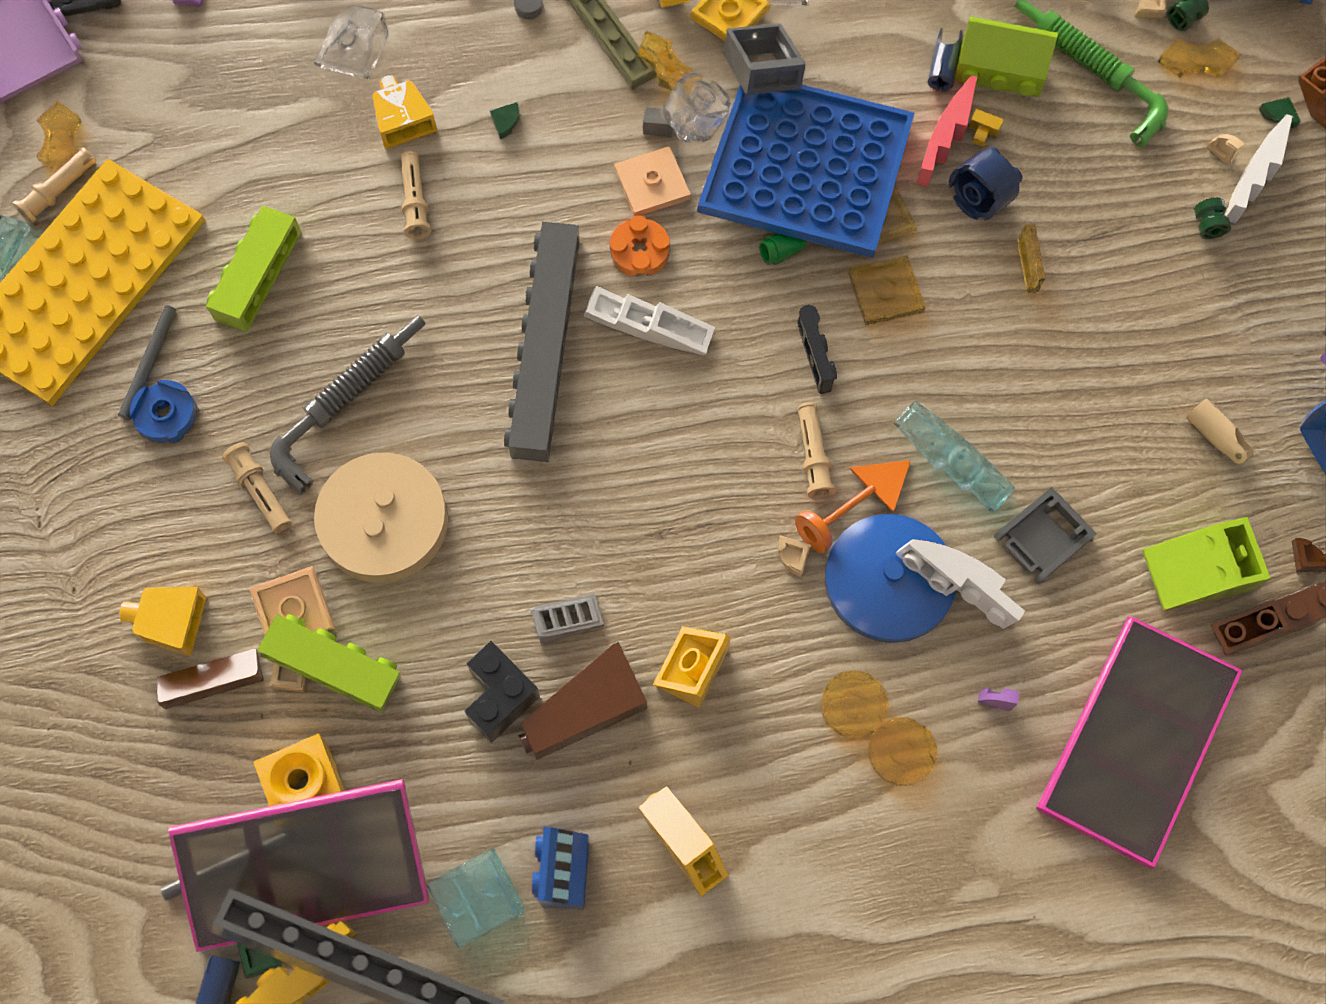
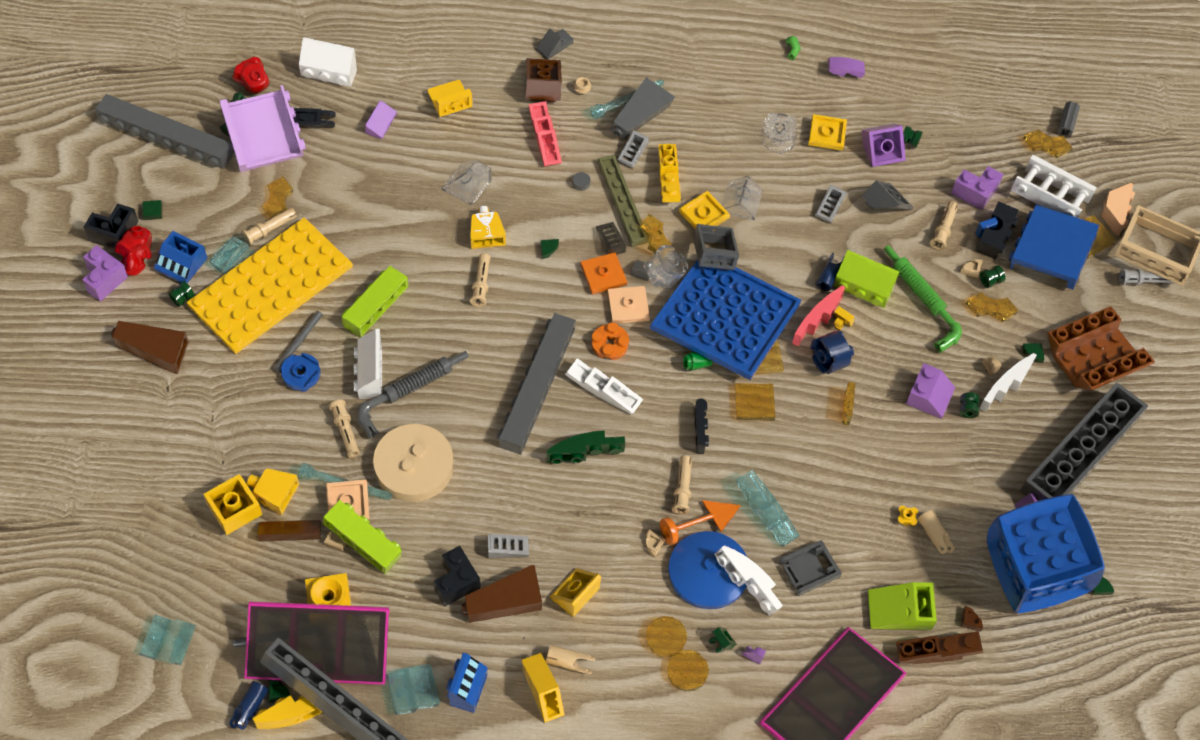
camera: 10 degrees right, 10 degrees down
(53, 917) = (167, 640): none -> clear light blue slope
(83, 658) = (233, 504): none -> yellow piece
(214, 574) = (308, 472): none -> clear light blue piece
(270, 376) = (368, 366): none -> white slope
(600, 140) = (603, 273): none -> orange plate
(602, 101) = (620, 247): none -> clear smoke slope
(634, 429) = (576, 447): none -> dark green slope
(711, 782) = (567, 659): none -> tan piece
(946, 686) = (724, 639): none -> dark green tile
(1147, 210) = (931, 391): none -> medium lavender slope
(1165, 422) = (903, 519): none -> yellow plate

